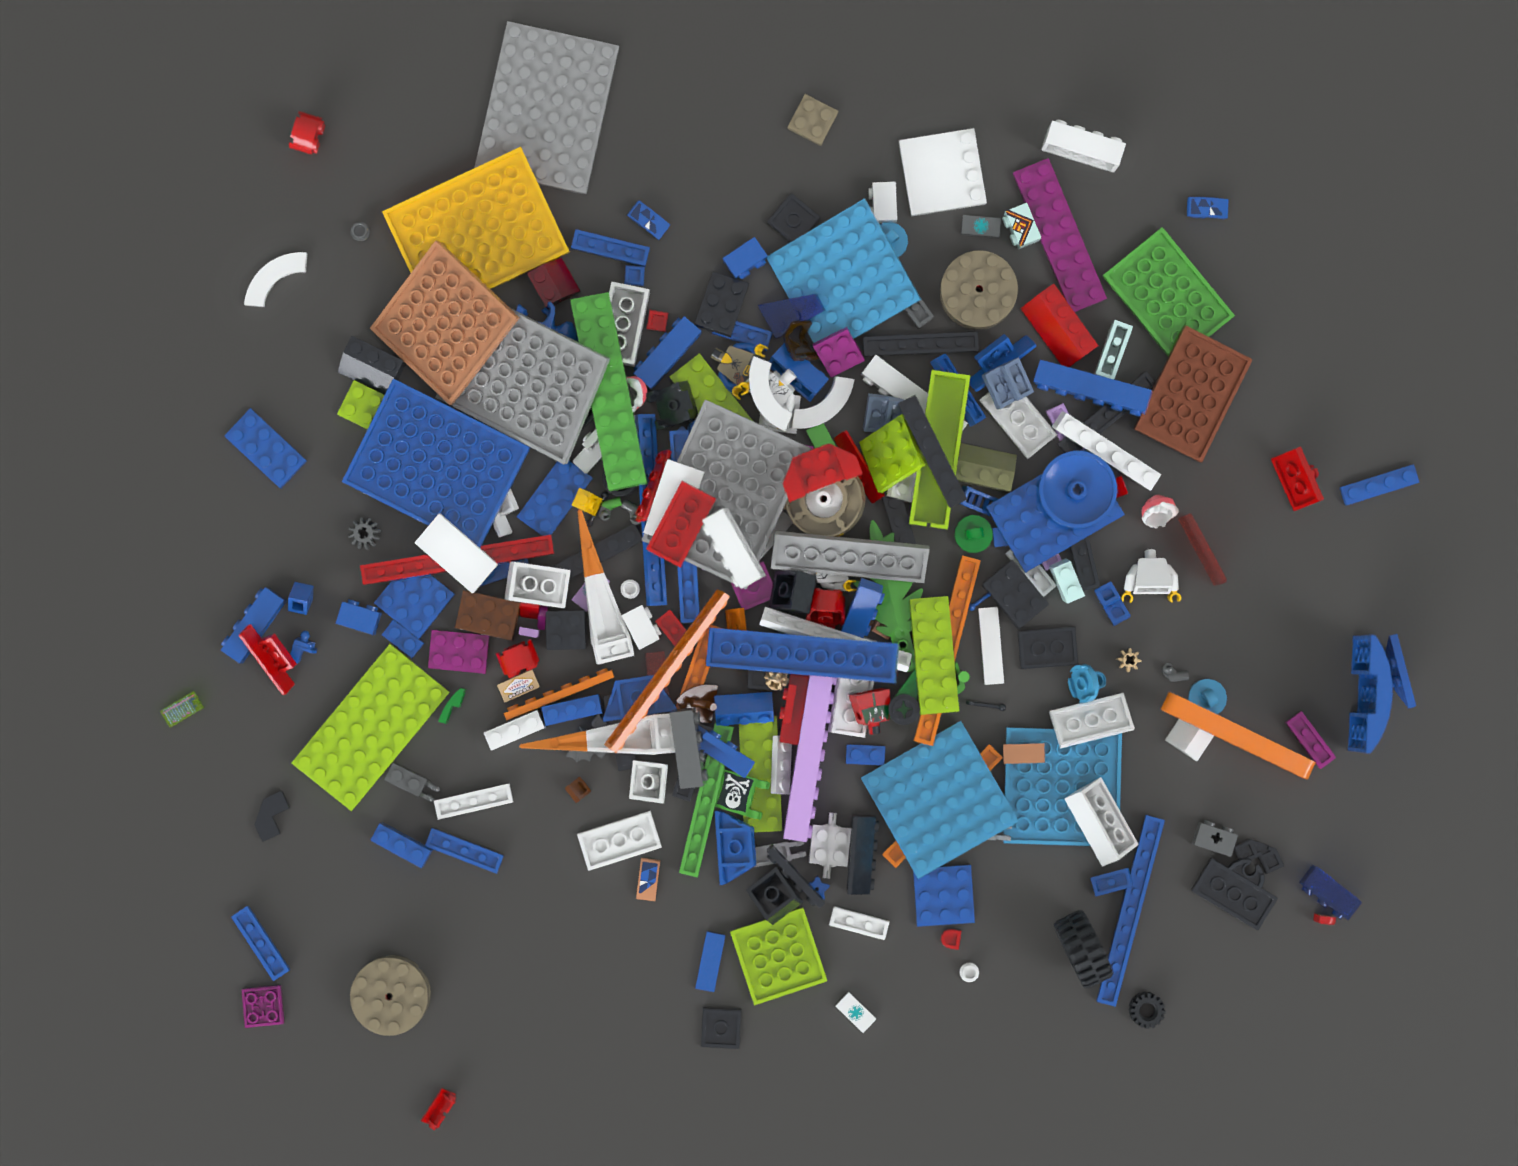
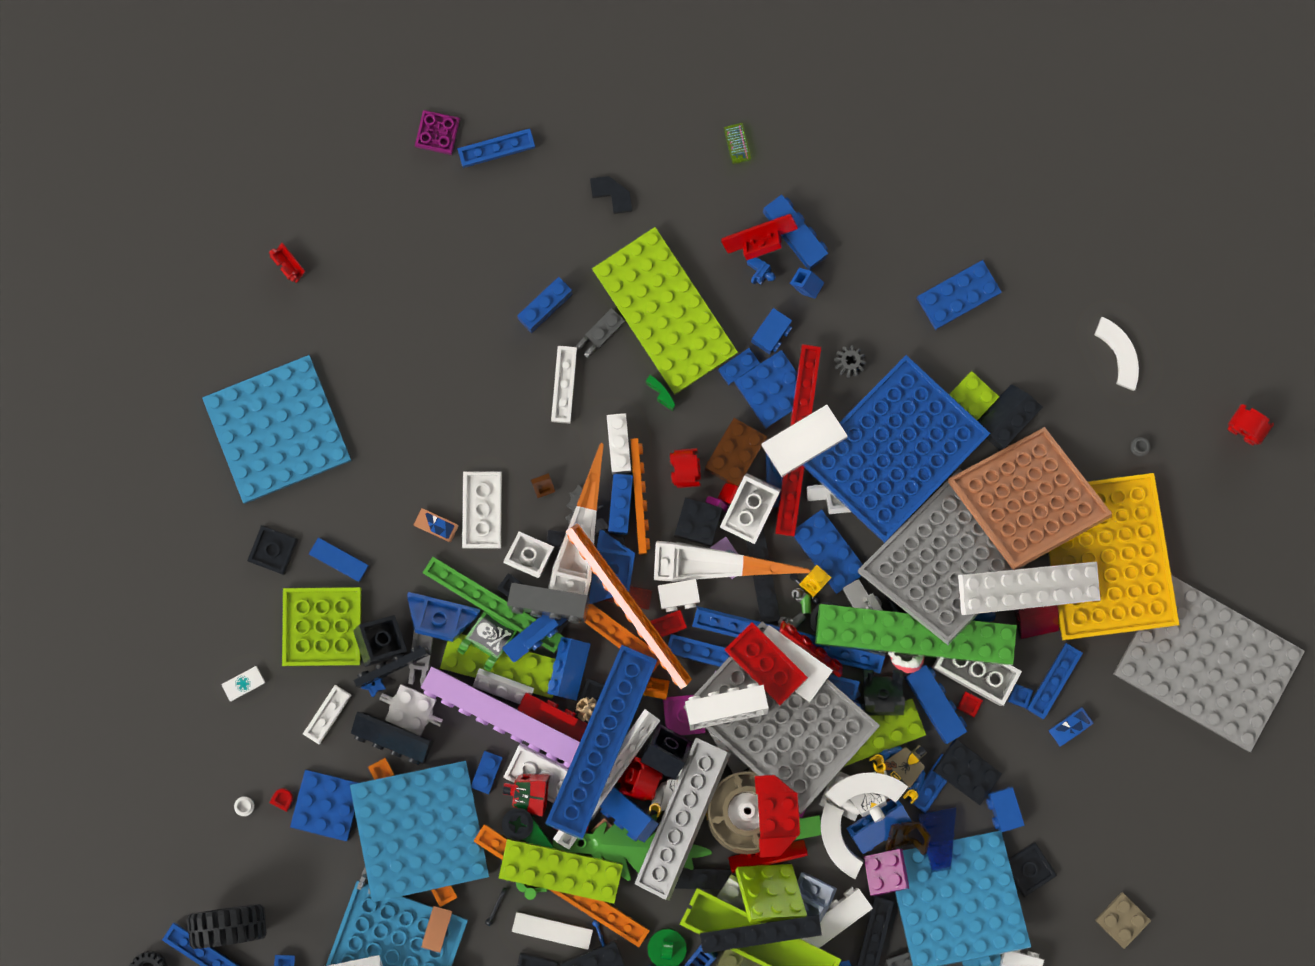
camera: 110 degrees right, 5 degrees down
(376, 1008) = (390, 246): dark tan piece -> none
(458, 651) = (710, 415): magenta plate -> none
(464, 850) = (520, 361): blue plate -> none
(518, 686) = (659, 461): tile -> none
(529, 632) = (707, 486): lavender tile -> none
(531, 298) = (1028, 588): none -> white plate
(604, 1064) = (276, 429): none -> dark azure plate
(630, 589) = (718, 595): white plate -> none
(702, 699) = (592, 630): reddish brown shield -> none

